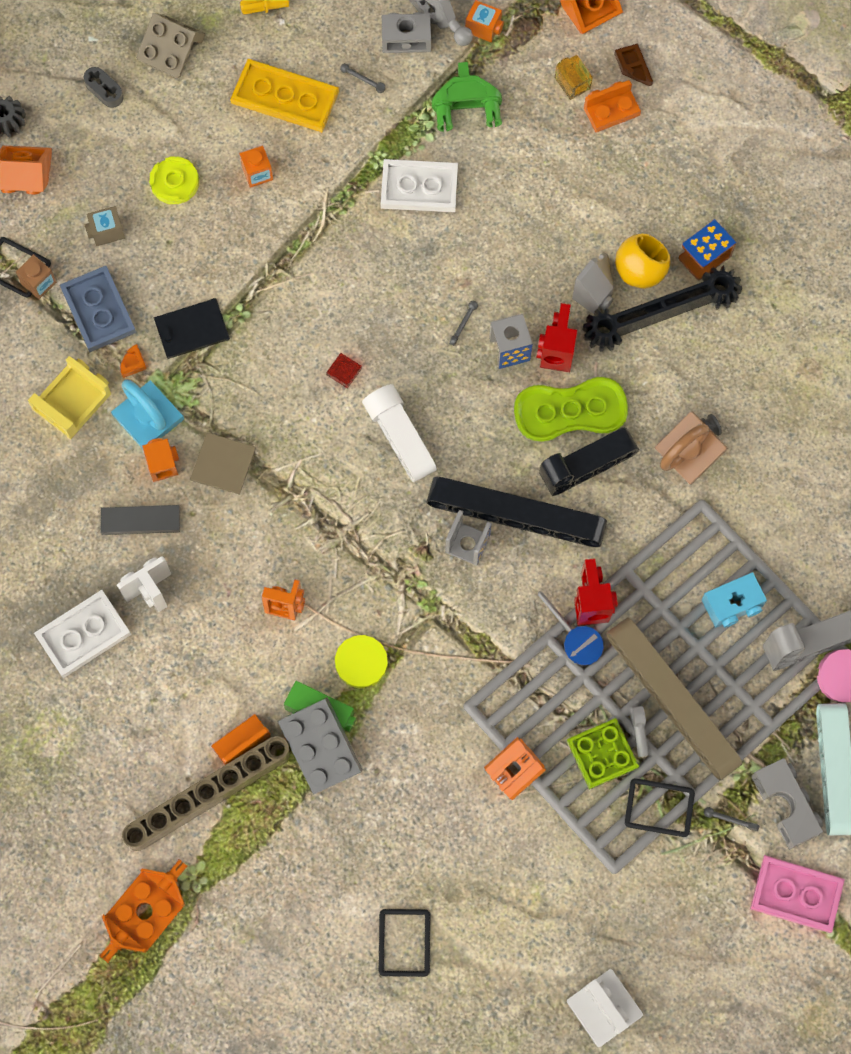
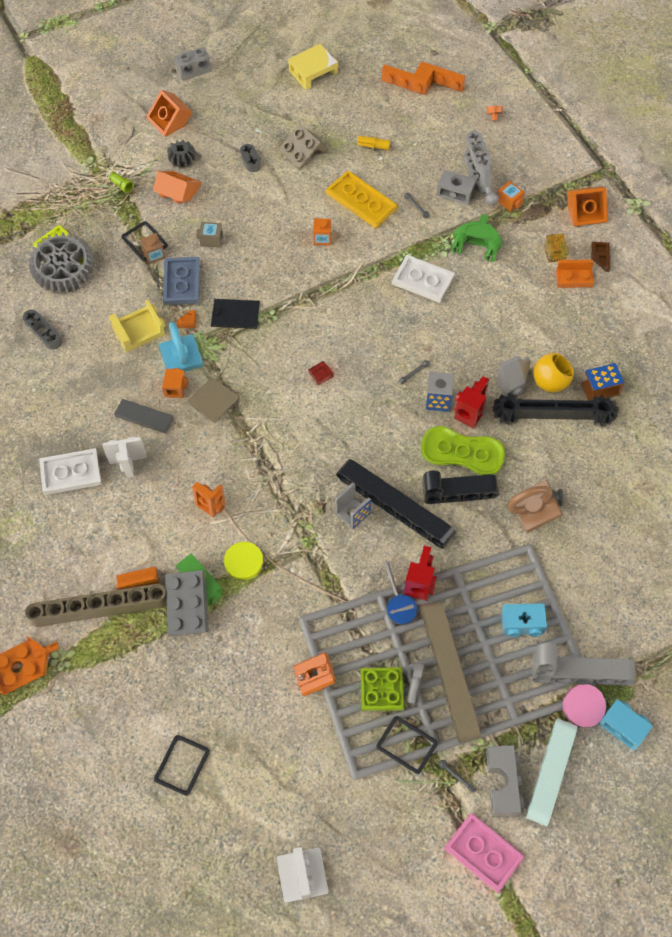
camera: 25 degrees right, 10 degrees down
(174, 180) = (267, 224): neon yellow tile -> none
(387, 409) = (336, 404): white beam -> none

